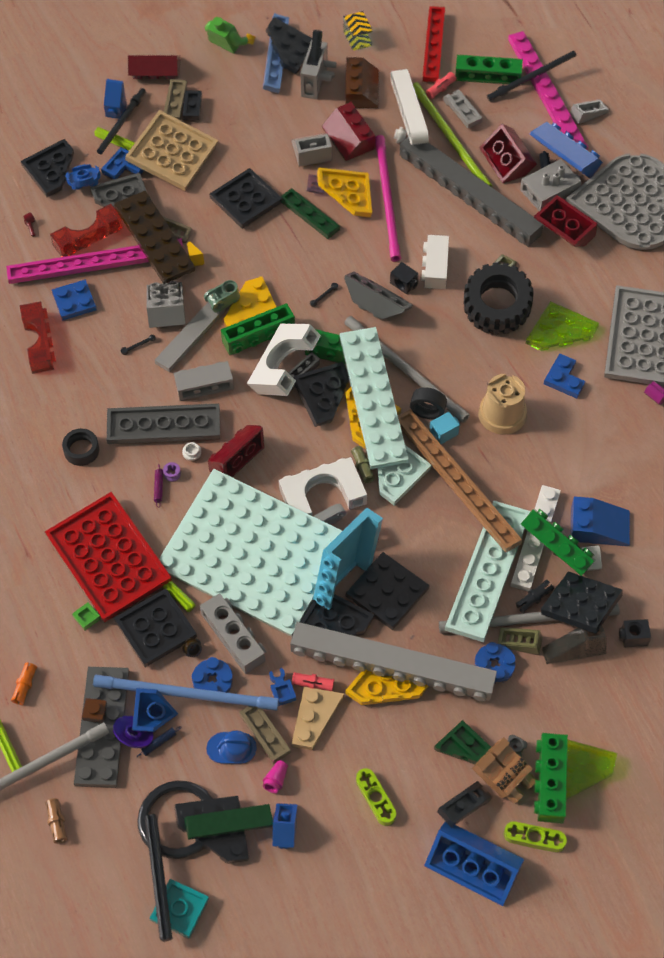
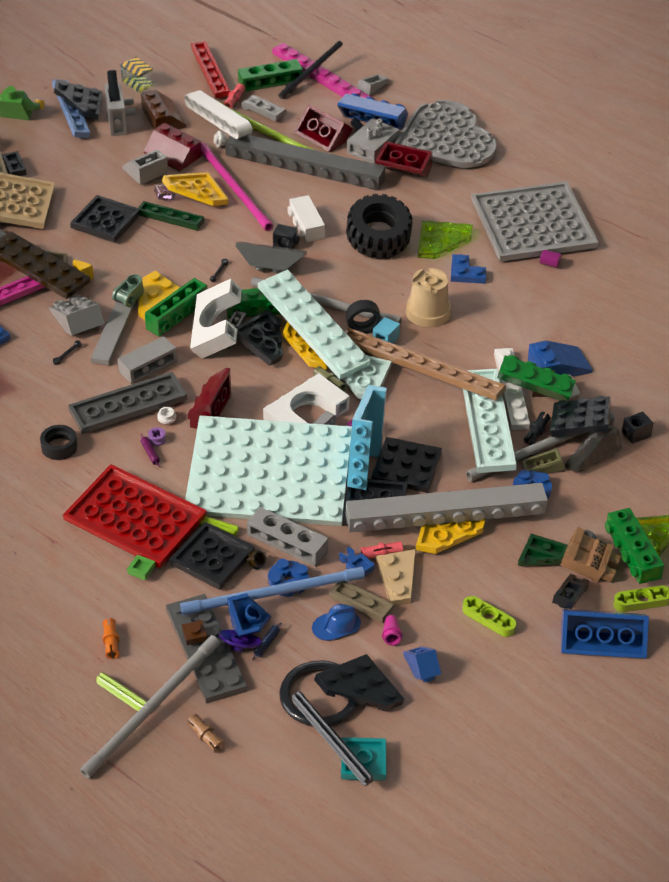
camera: 25 degrees left, 15 degrees down
(228, 821) = (372, 672): dark green tile -> none

